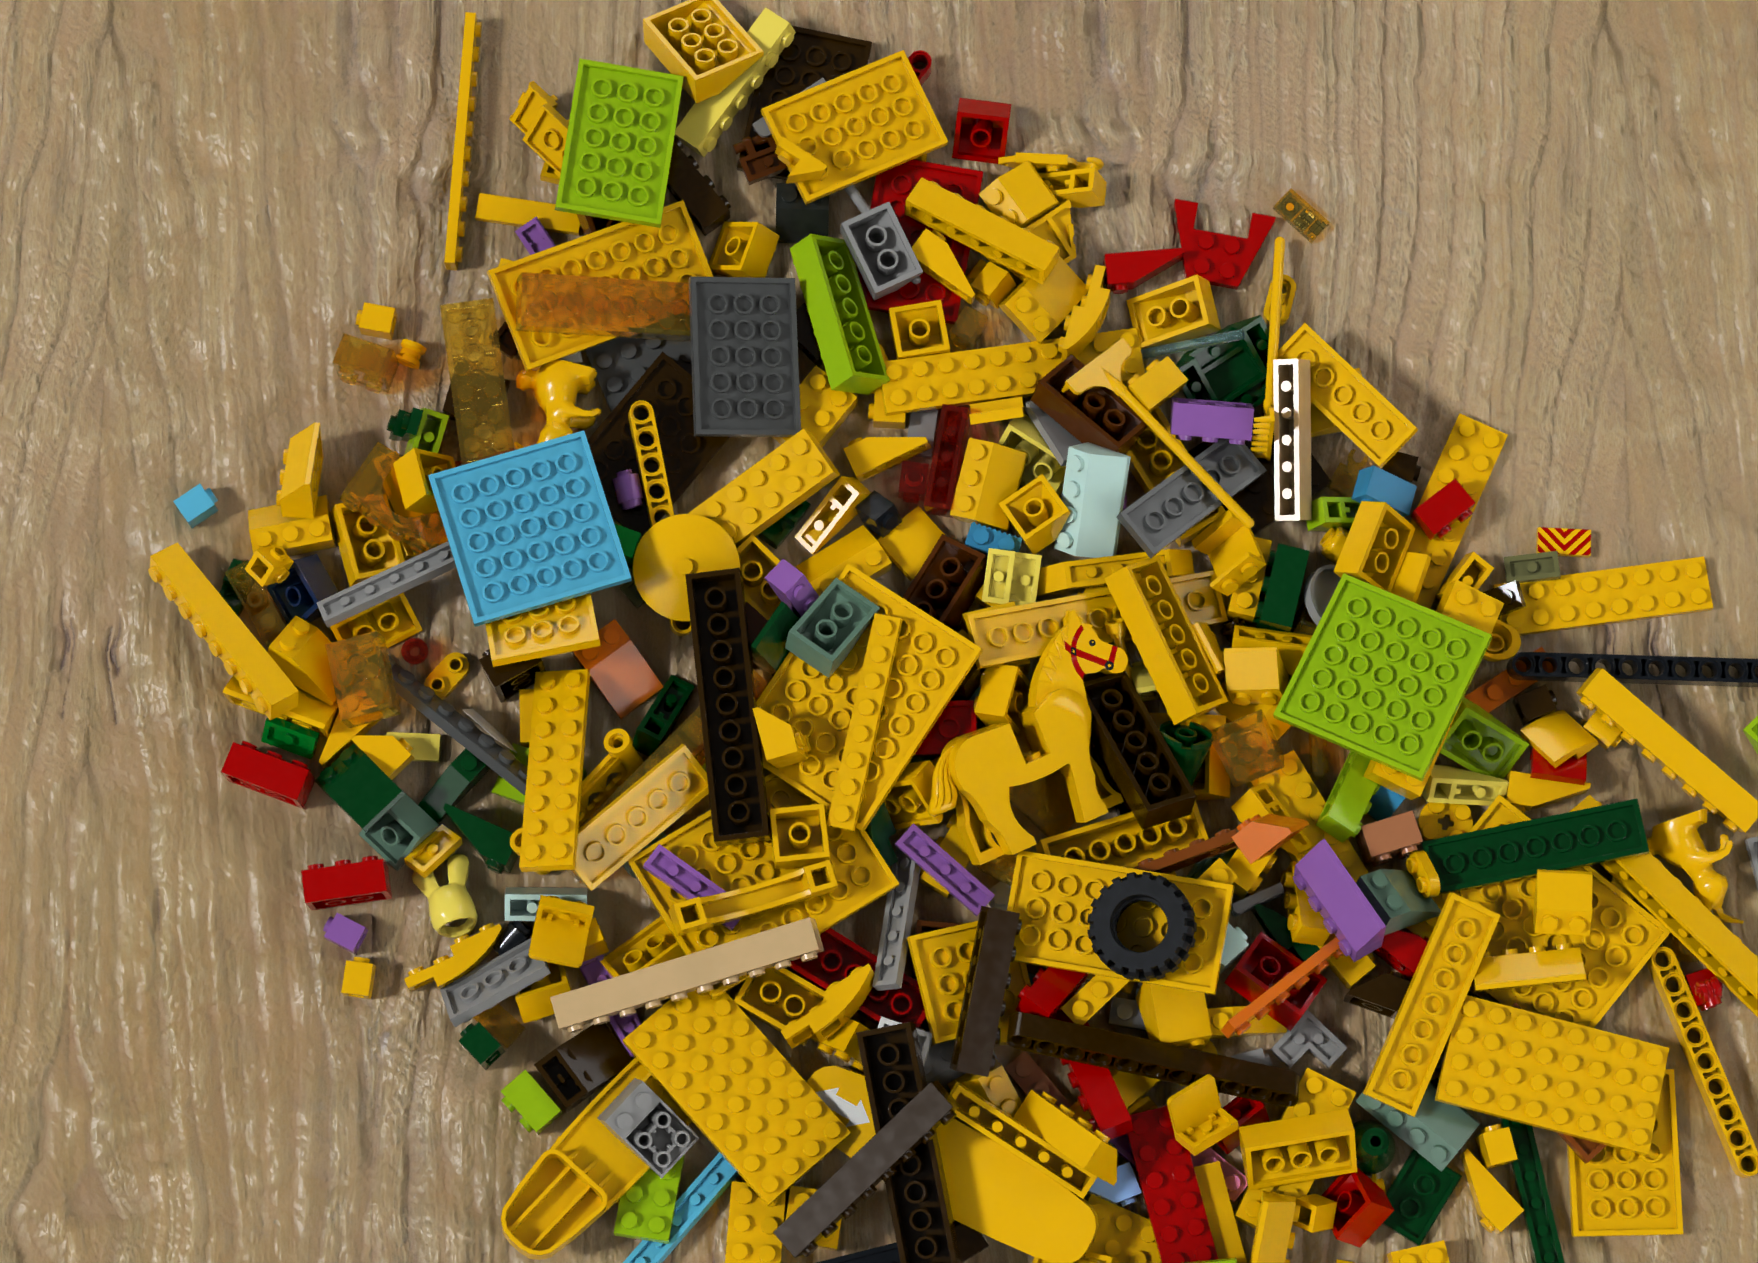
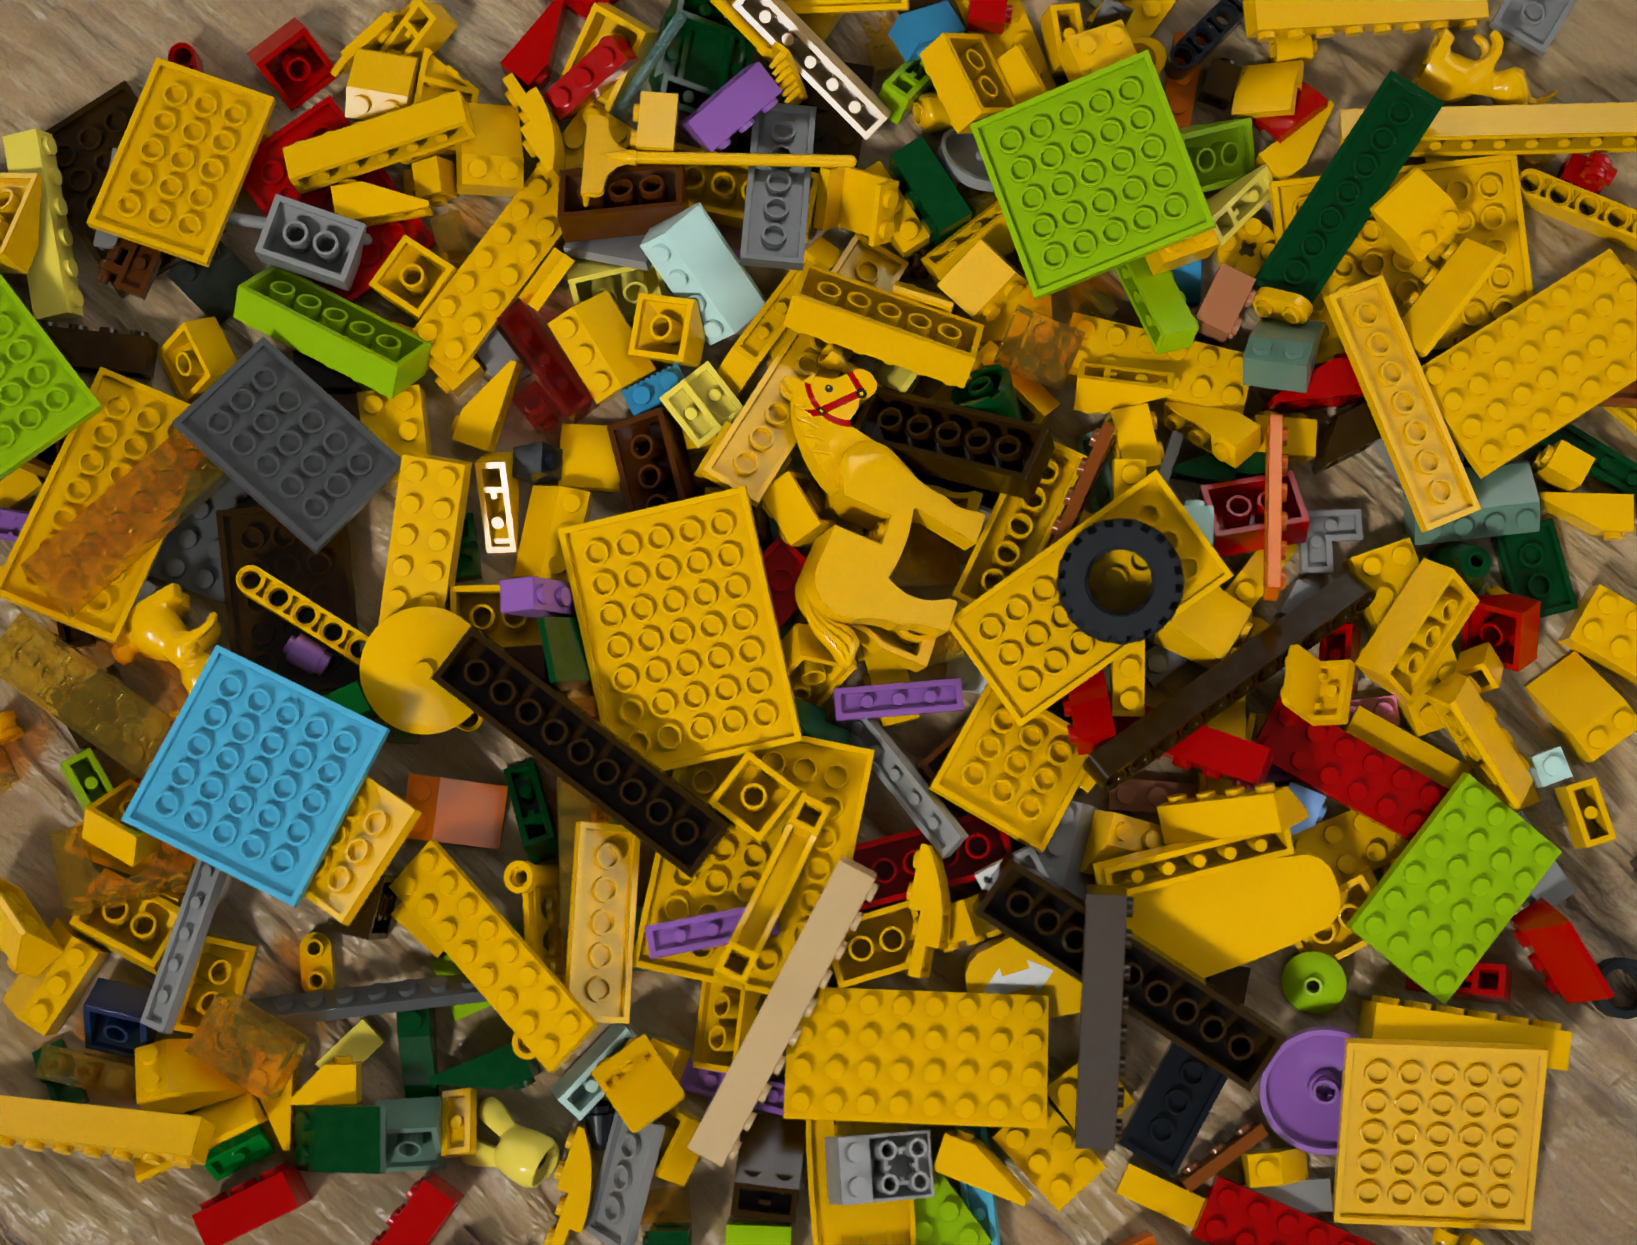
camera: 45 degrees left, 5 degrees up
(269, 565) = (66, 1032): yellow brick -> none
(404, 424) = (60, 792): dark green slope -> none
(414, 643) = (259, 975): clear red plate -> none
(488, 727) = (397, 972): white sticker -> none
(706, 1188) = (976, 1165): none -> yellow slope
(780, 740) = (656, 736): yellow slope -> none
(806, 165) = (173, 232): yellow slope -> none
(831, 627) = (600, 597): sand green slope -> none
(864, 722) = (710, 647): yellow plate -> none
(985, 991) = (1041, 767): dark brown brick -> none
(1149, 316) = (590, 76): none -> red brick
(1265, 834) = (1136, 399): orange slope -> none
(1339, 901) = (1247, 395): medium lavender slope -> none

